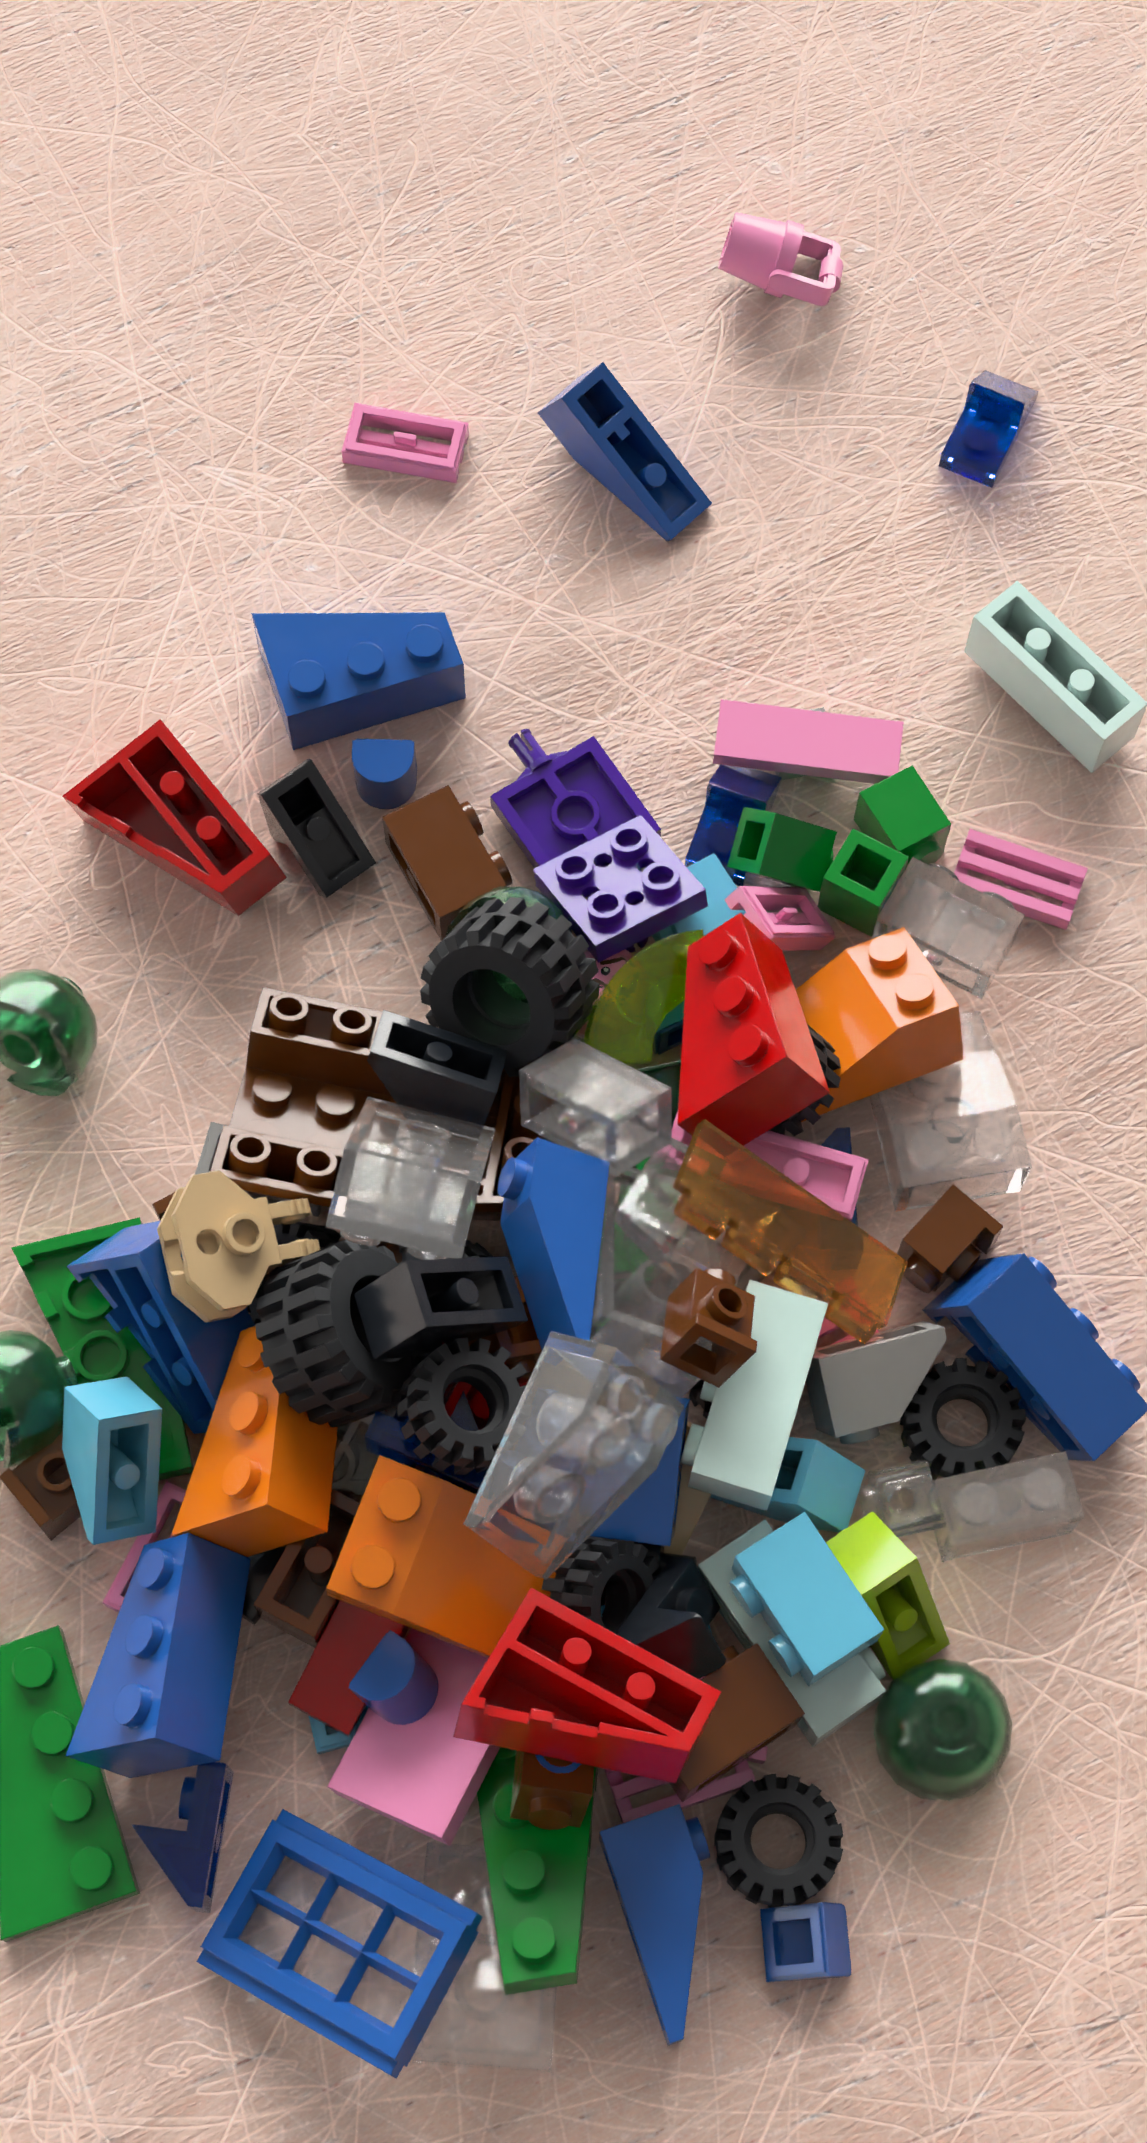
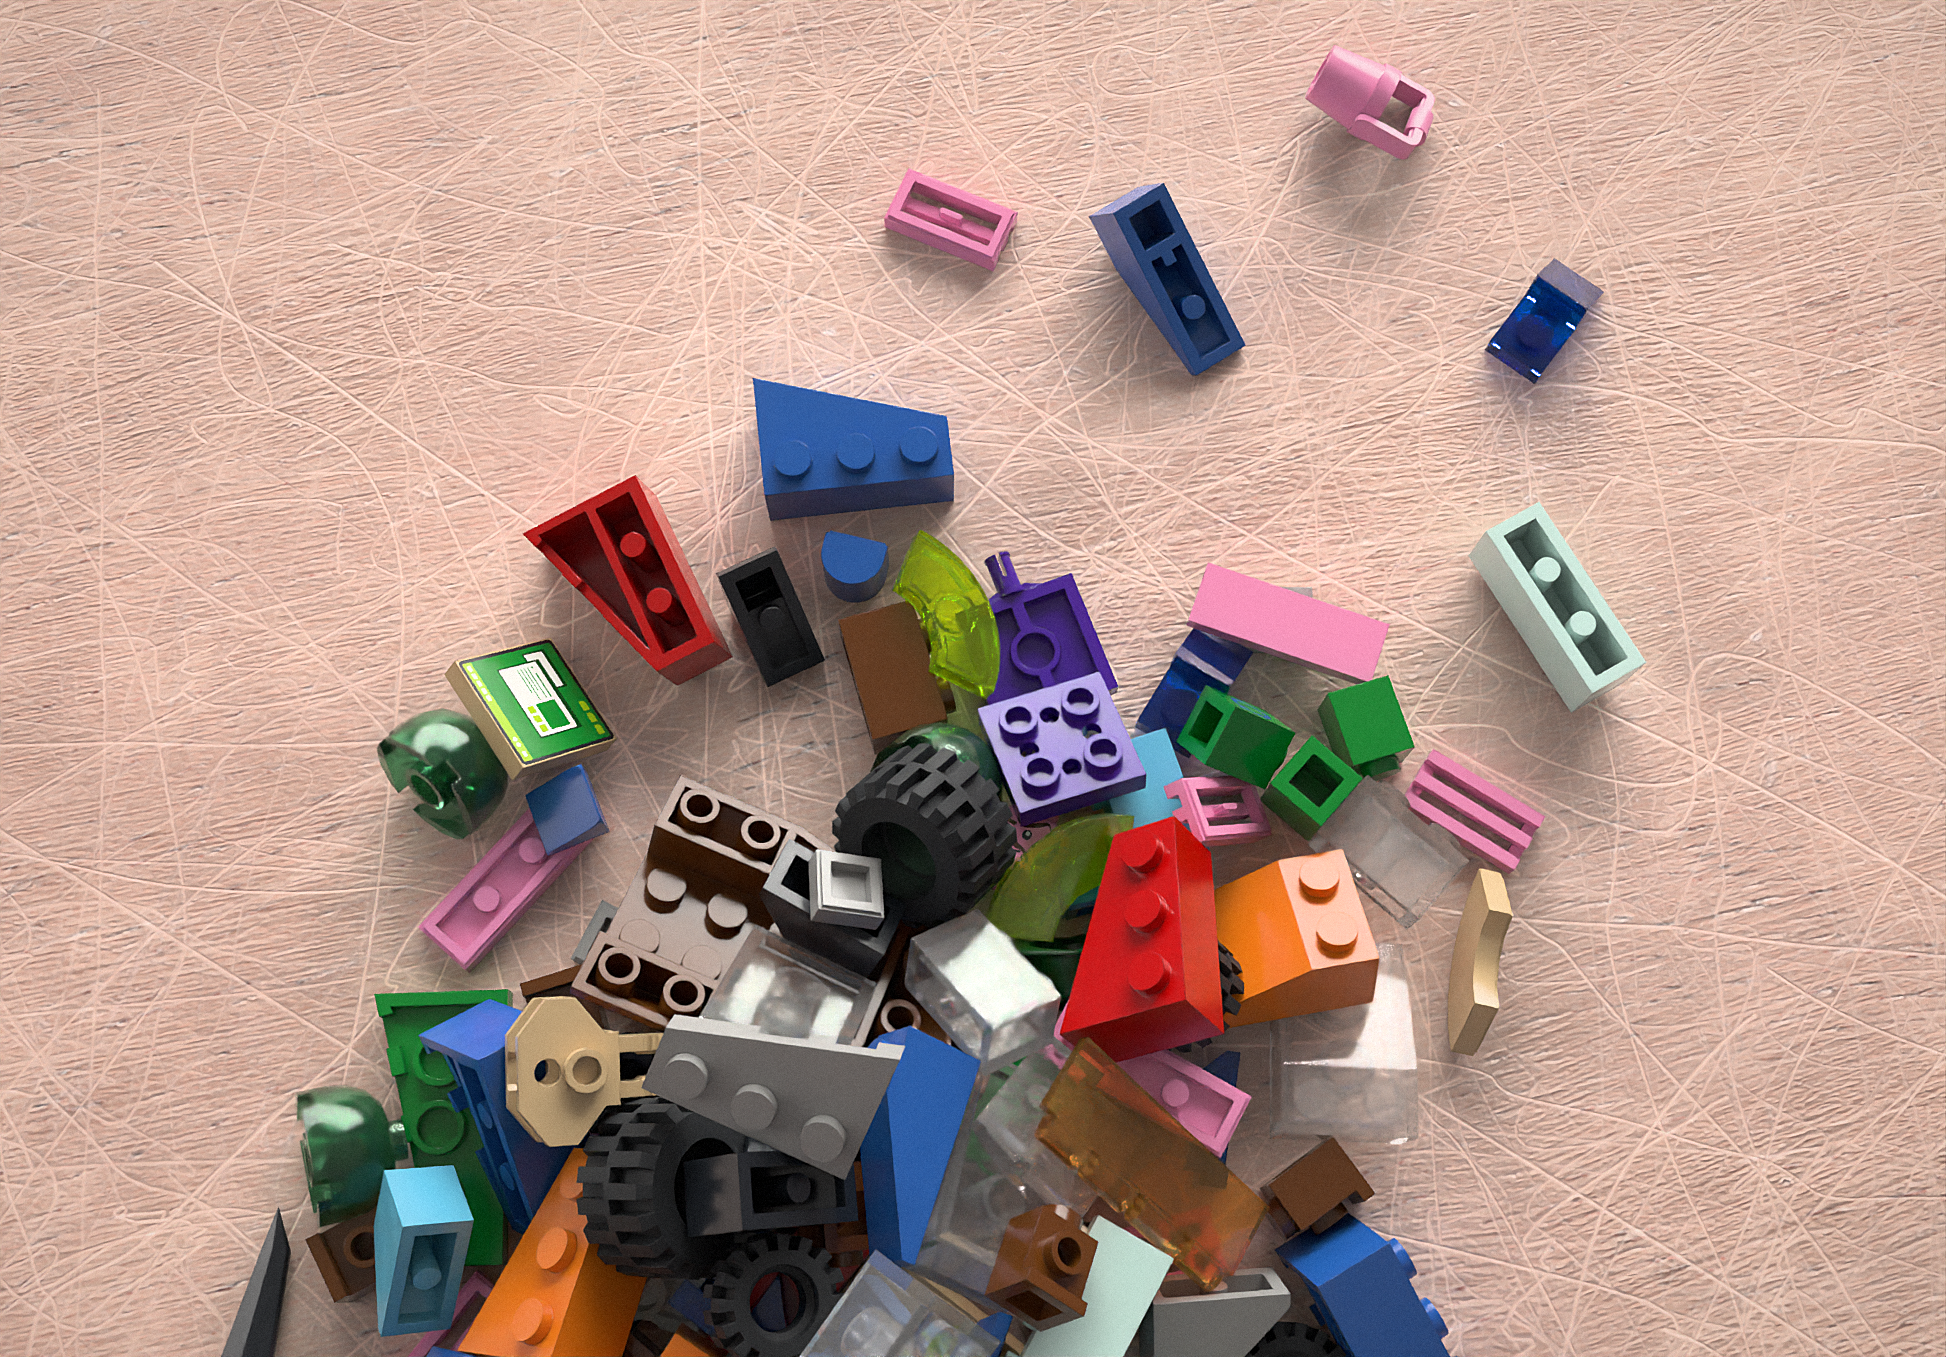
camera: 10 degrees right, 5 degrees up
(104, 955) = (530, 707): none -> tile
(117, 1121) = (496, 893): none -> bright pink tile
(160, 1043) = (566, 810): none -> blue slope
(430, 1201) = (780, 1090): none -> light grey wing
(448, 1042) = (846, 889): none -> light grey tile
(491, 789) = (955, 615): none -> clear neon green tile
(1052, 1009) = (1476, 962): none -> tan tile

